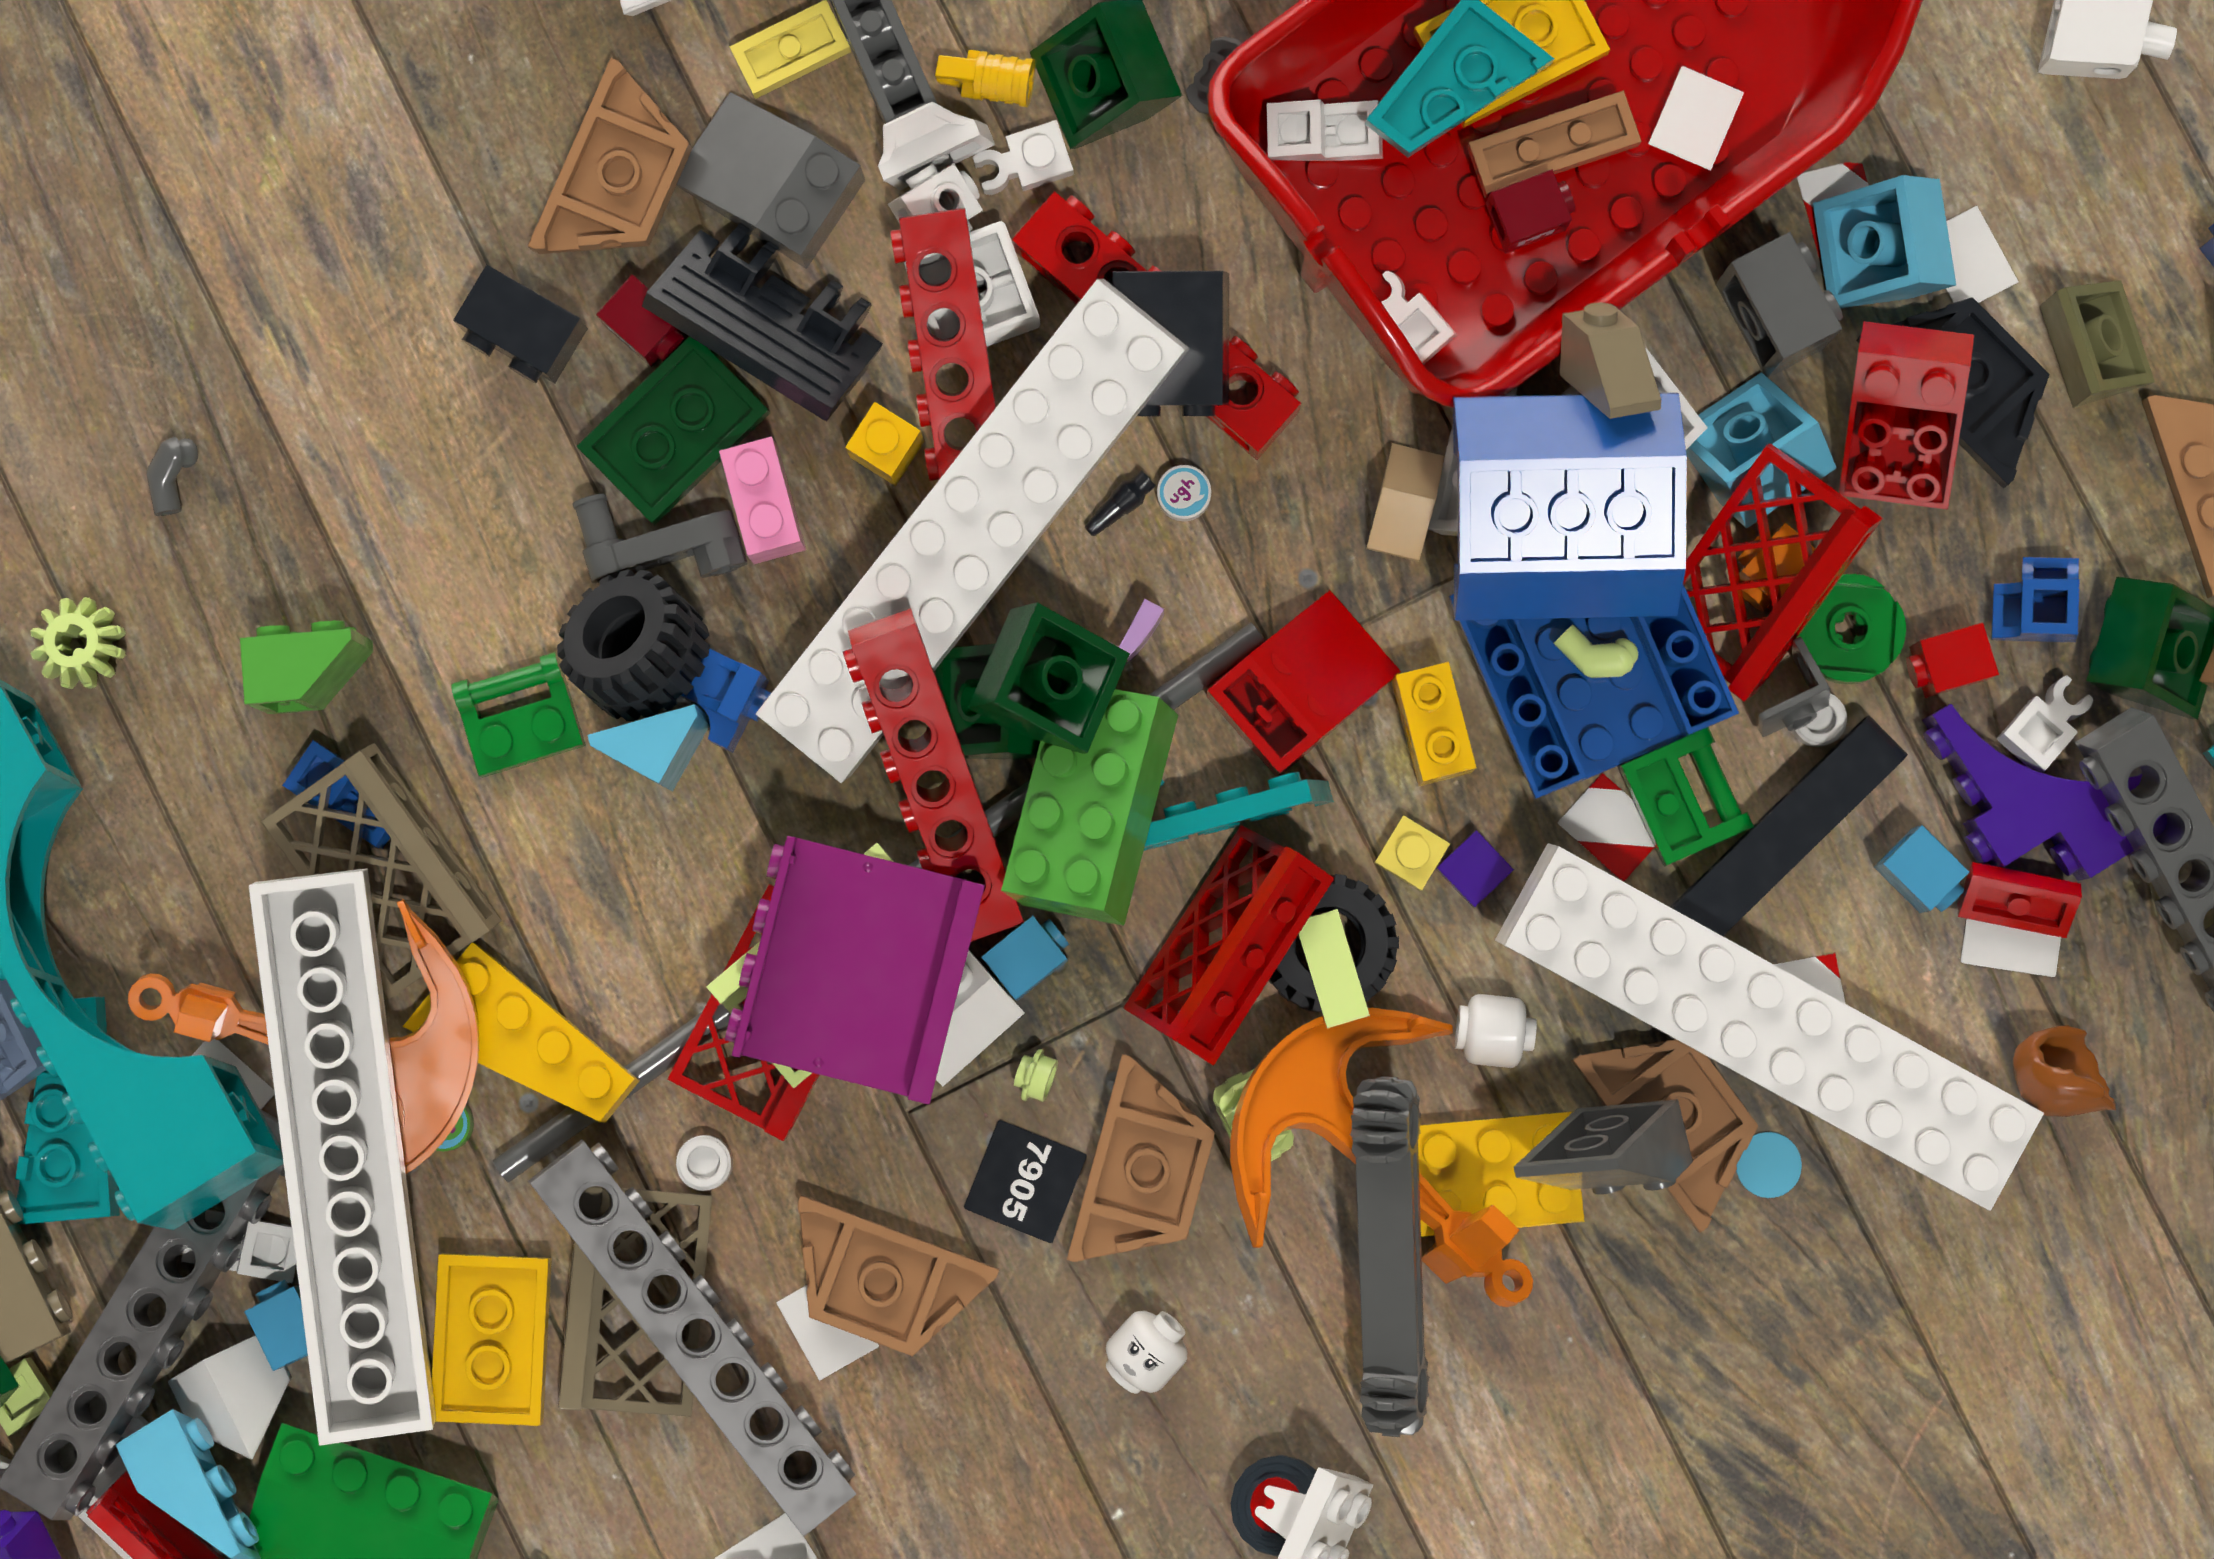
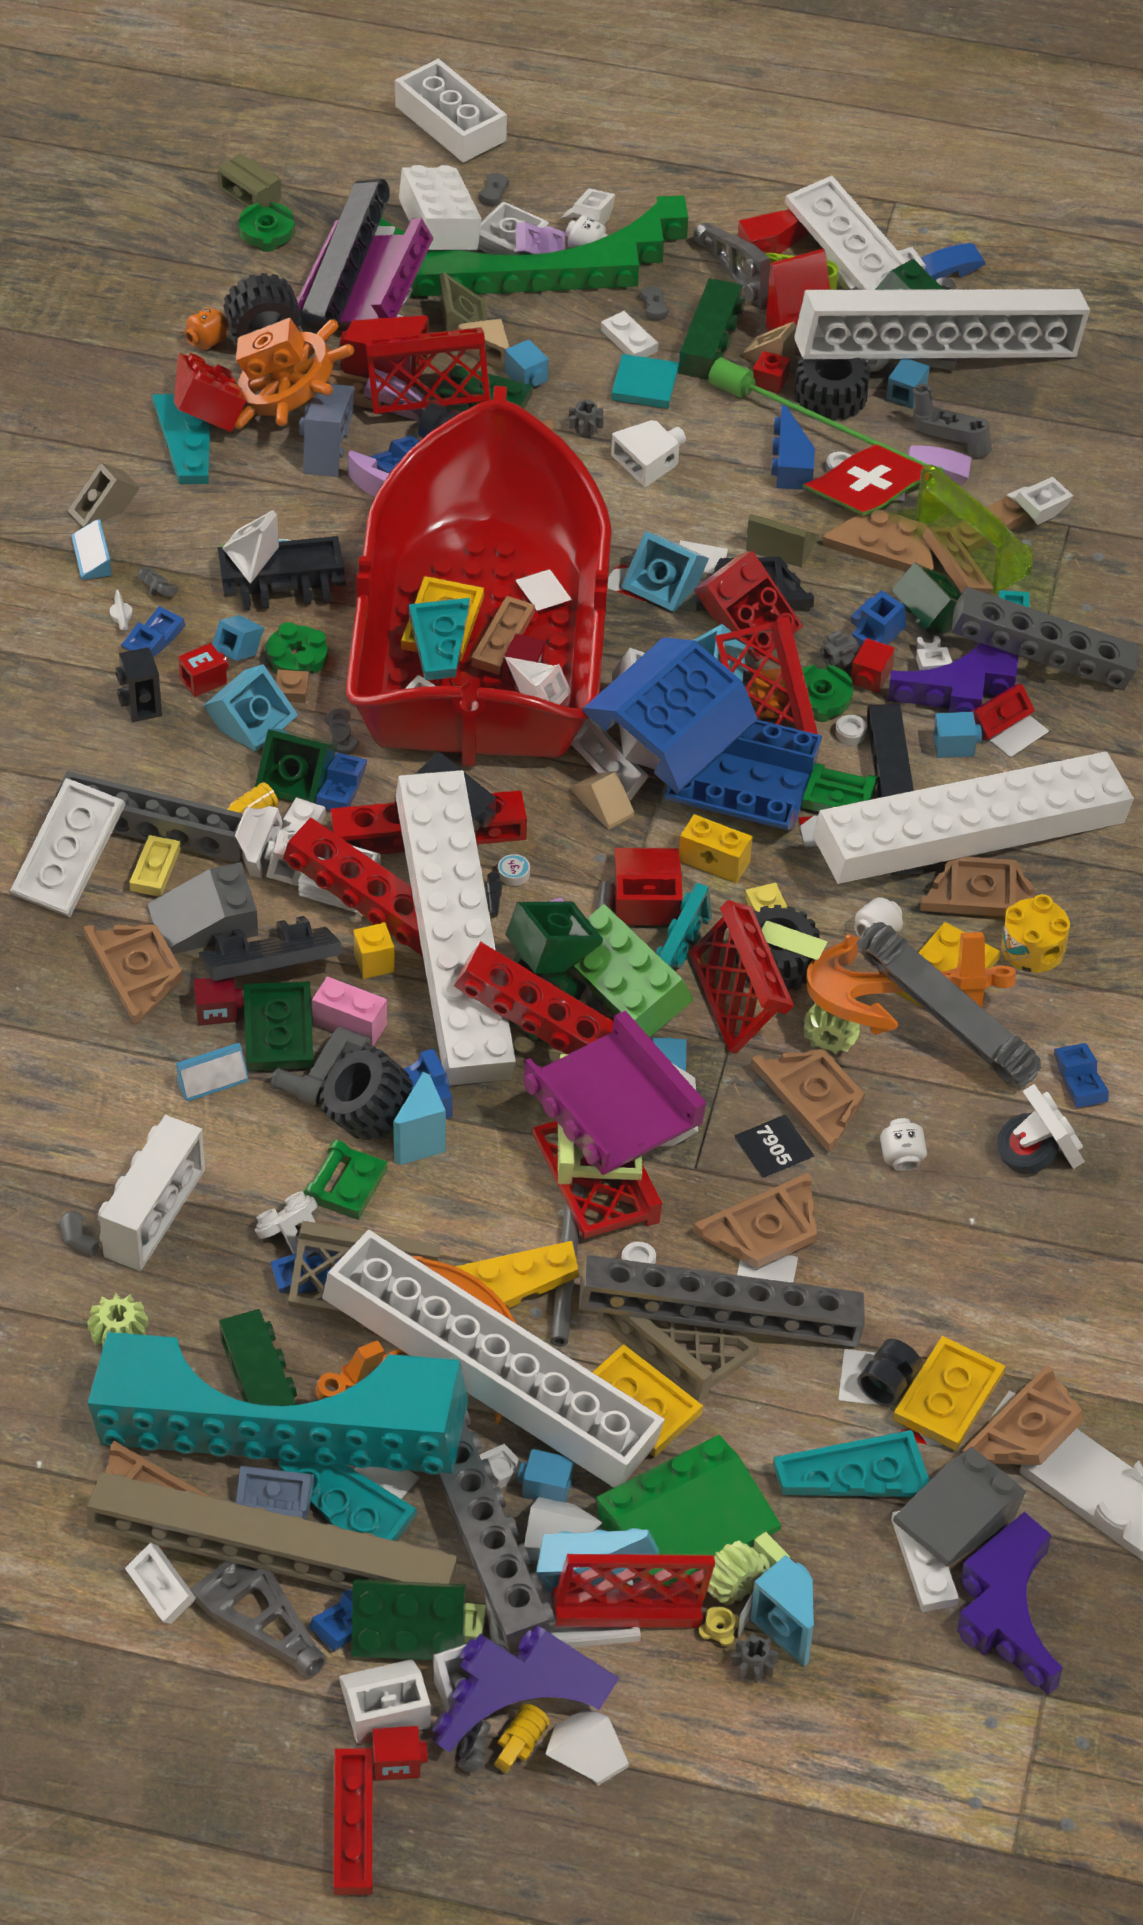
camera: 60 degrees left, 35 degrees down
(141, 881) = (255, 1360): none -> dark green brick
(271, 520) = (151, 1192): none -> white brick
(299, 669) = (229, 1232): bright green slope -> none
(394, 705) = (297, 1208): none -> white bracket
(519, 325) = (165, 1040): black brick -> none
(532, 417) = (211, 1072): none -> flat silver slope
(1036, 1075) = (728, 1100): yellowish green plate -> none
(1136, 151) = (342, 781): none -> blue slope
(1466, 1478) = (1080, 1075): none -> blue slope
(1474, 869) = (796, 884): dark purple tile -> none
(1495, 281) = (539, 679): none -> white slope
(1598, 659) = (746, 771): yellowish green arm -> none
(1608, 361) = (622, 647): dark tan slope -> none
(1612, 1149) = (980, 898): dark grey slope -> none
(1645, 1250) = (1035, 934): none -> yellow brick
(1769, 1165) = (1041, 877): medium azure sticker -> none
(1780, 304) = (654, 610): dark grey brick -> none
(1801, 708) = (839, 719): dark grey bracket -> none
(1939, 598) = (839, 650): none -> dark grey gear
(2060, 1073) = (1098, 740): dark orange hair -> none

